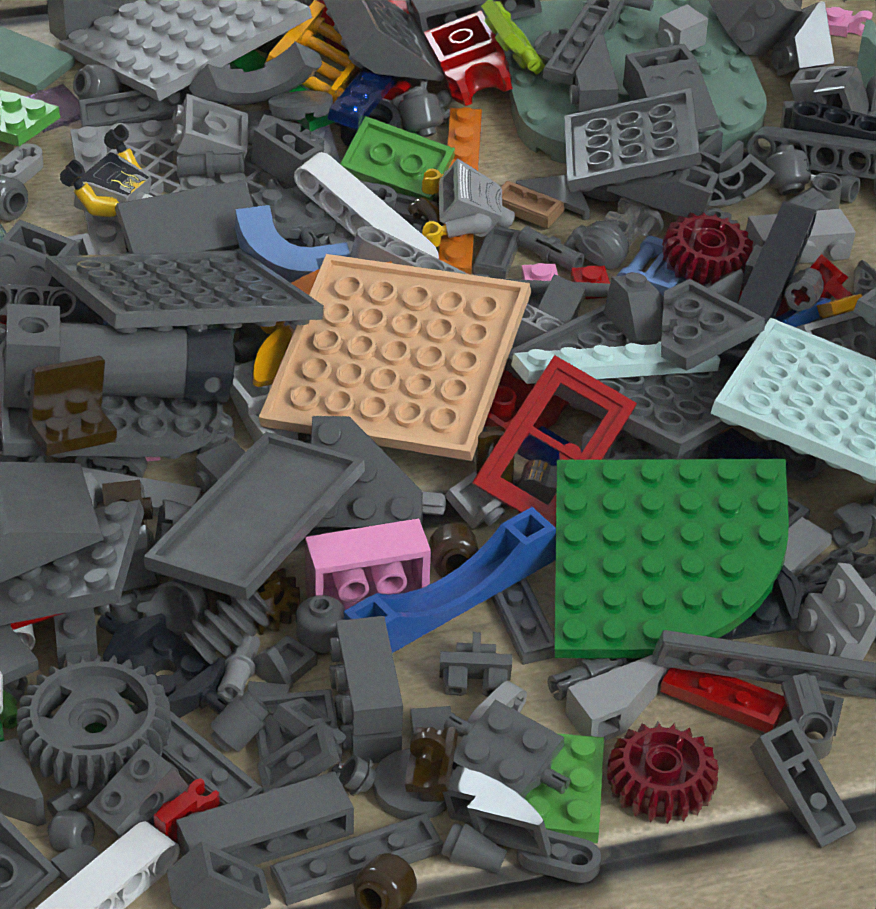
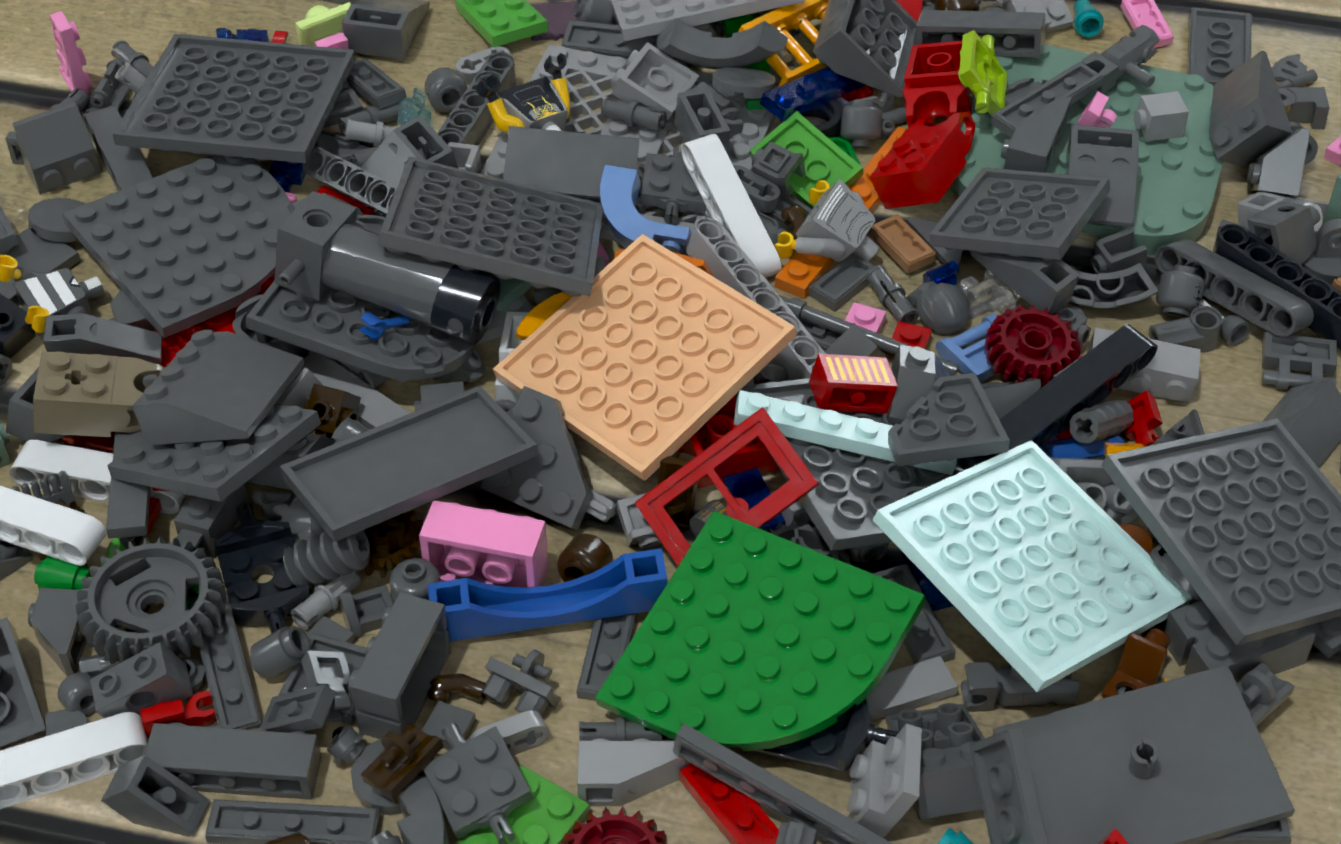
camera: 30 degrees right, 5 degrees up
(47, 189) = (471, 115): none -> dark grey beam
(67, 406) = (312, 303): dark brown bracket -> none
(130, 412) = (376, 327): none -> blue hand
(381, 167) = (778, 165): none -> dark grey window
(420, 689) = (458, 683): none -> dark brown arm
(505, 128) = (923, 162): none -> red brick
(581, 217) = (943, 274): none -> clear blue plate
(593, 321) = (853, 383): none -> red brick
(625, 43) = (1095, 113): none -> bright pink tile

